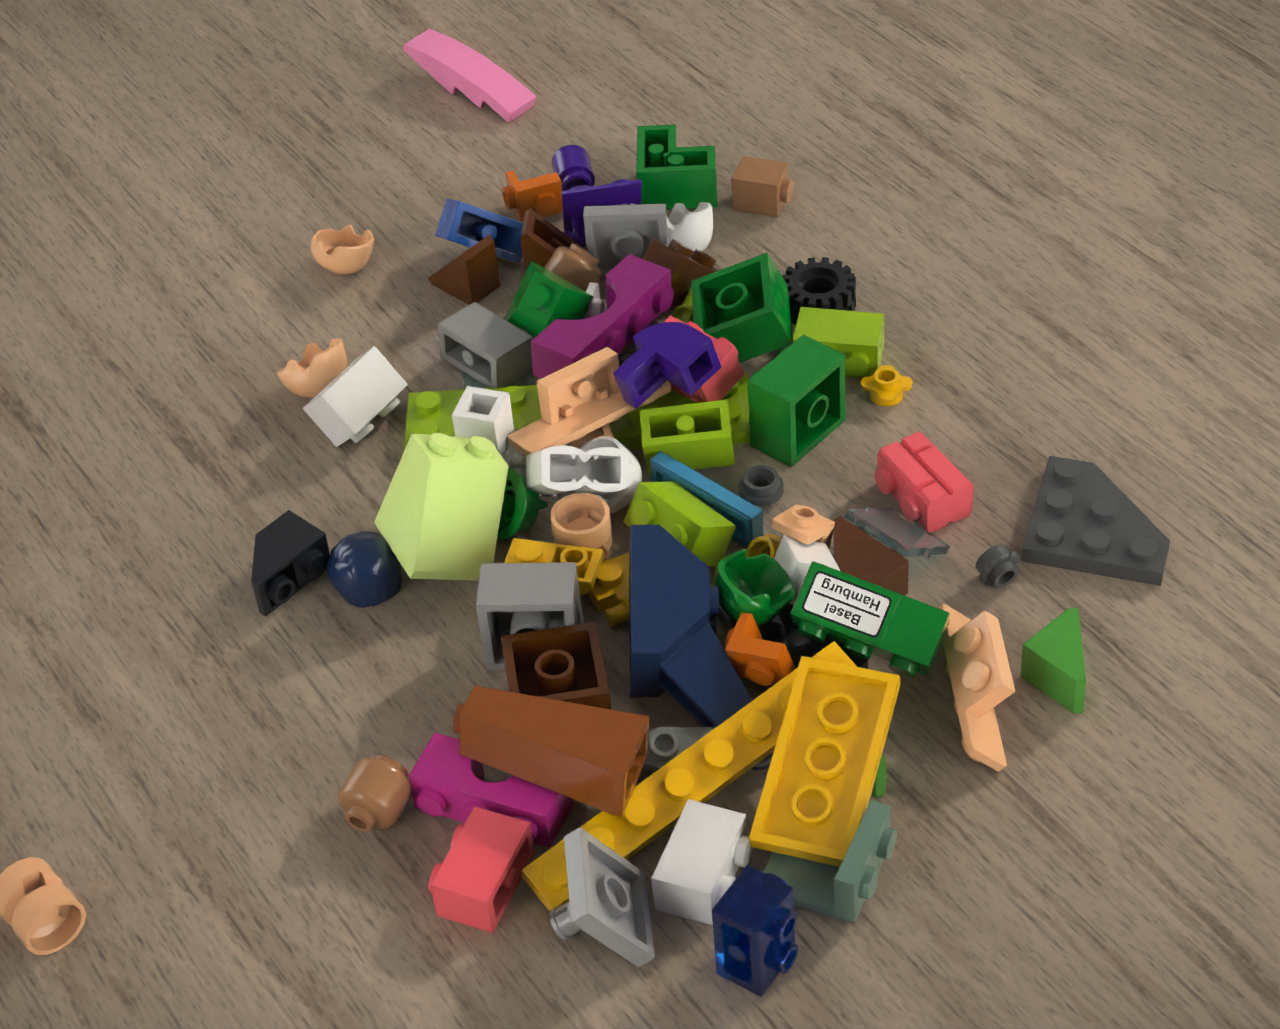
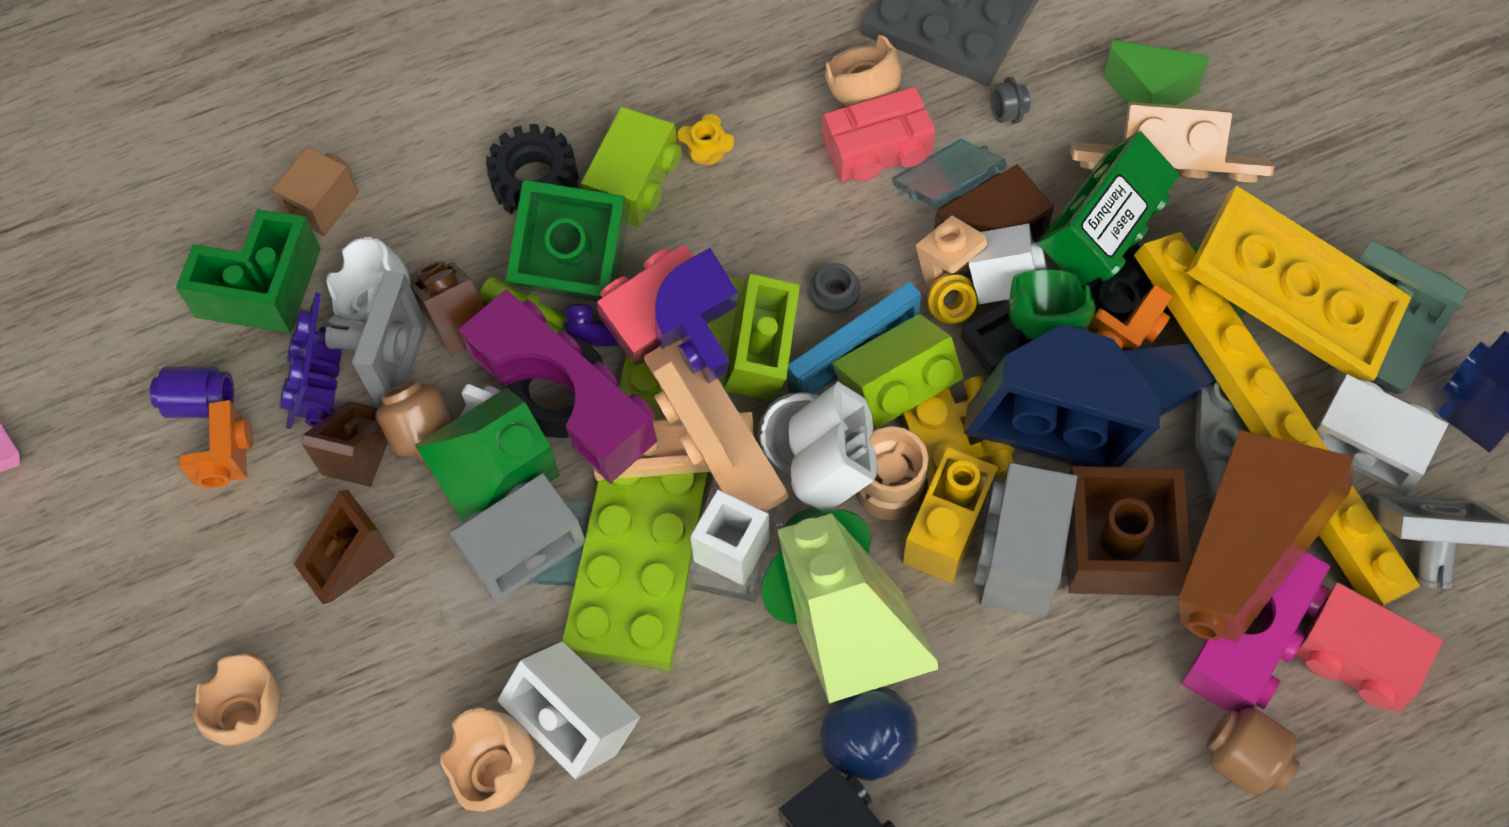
camera: 80 degrees left, 20 degrees up
(470, 224) = (278, 517): blue slope -> none
(796, 400) = (740, 213): green brick -> none
(982, 459) = (864, 72): none -> light nougat hair

